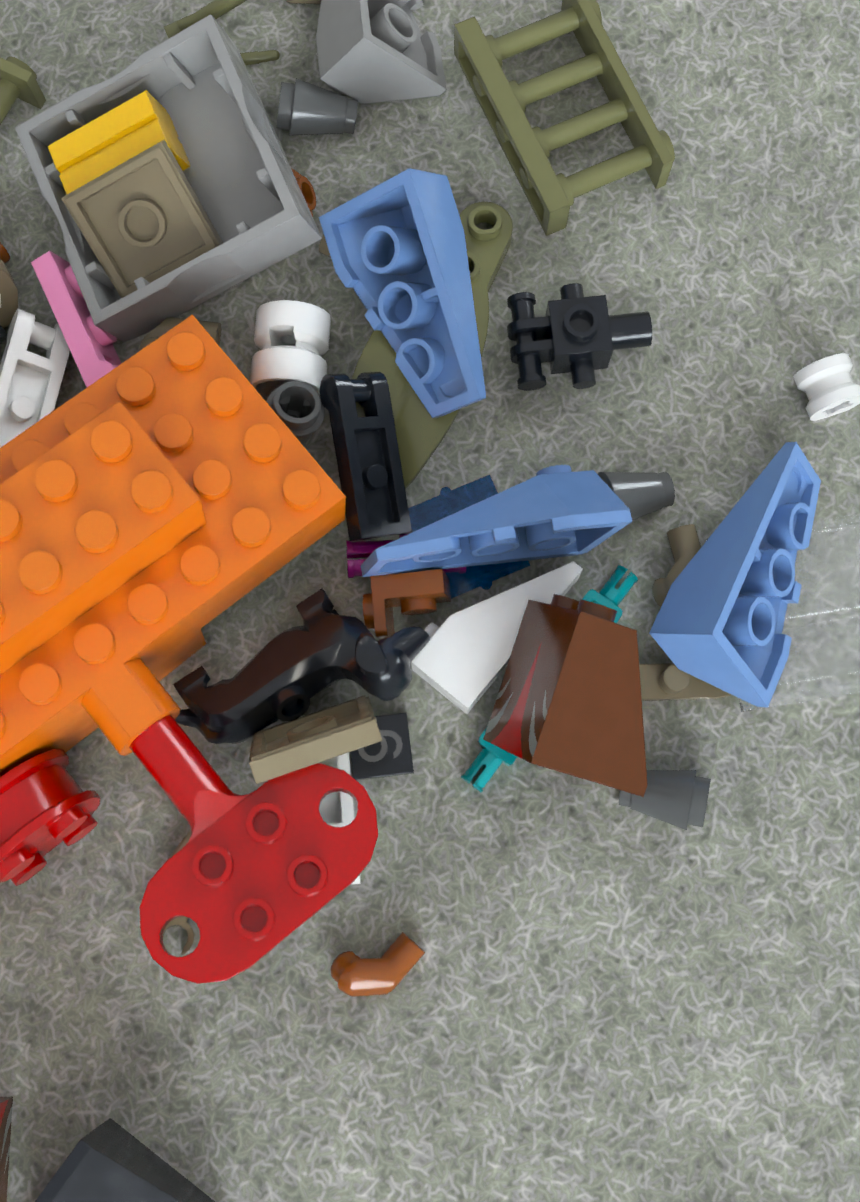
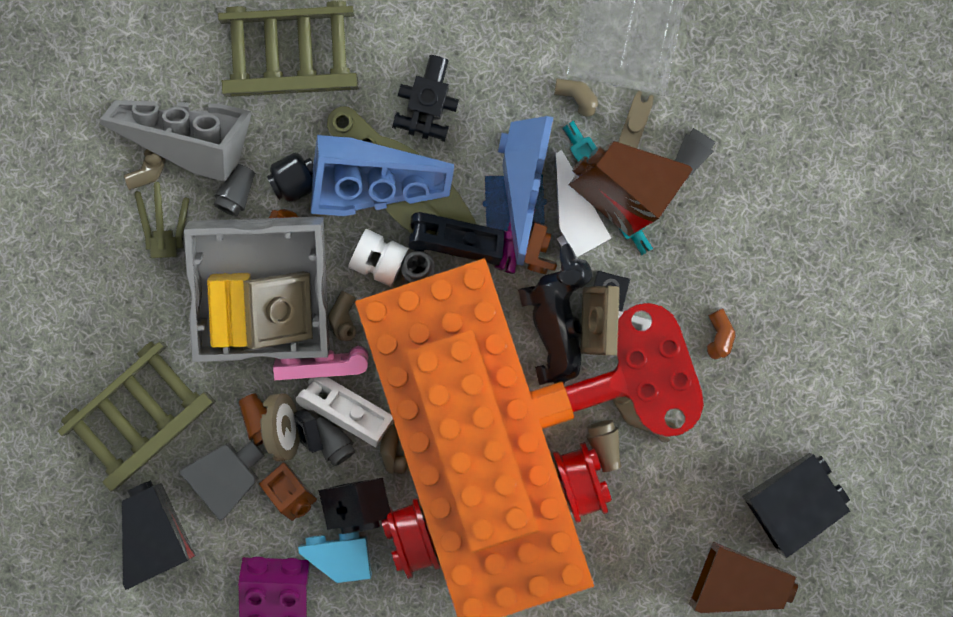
camera: 70 degrees left, 10 degrees up
(117, 837) = (605, 440): none -> dark tan cone
(359, 169) = (291, 177): none -> black head
(641, 490) = (528, 102): dark grey cone -> none
(733, 595) = (606, 77): medium blue wedge -> none

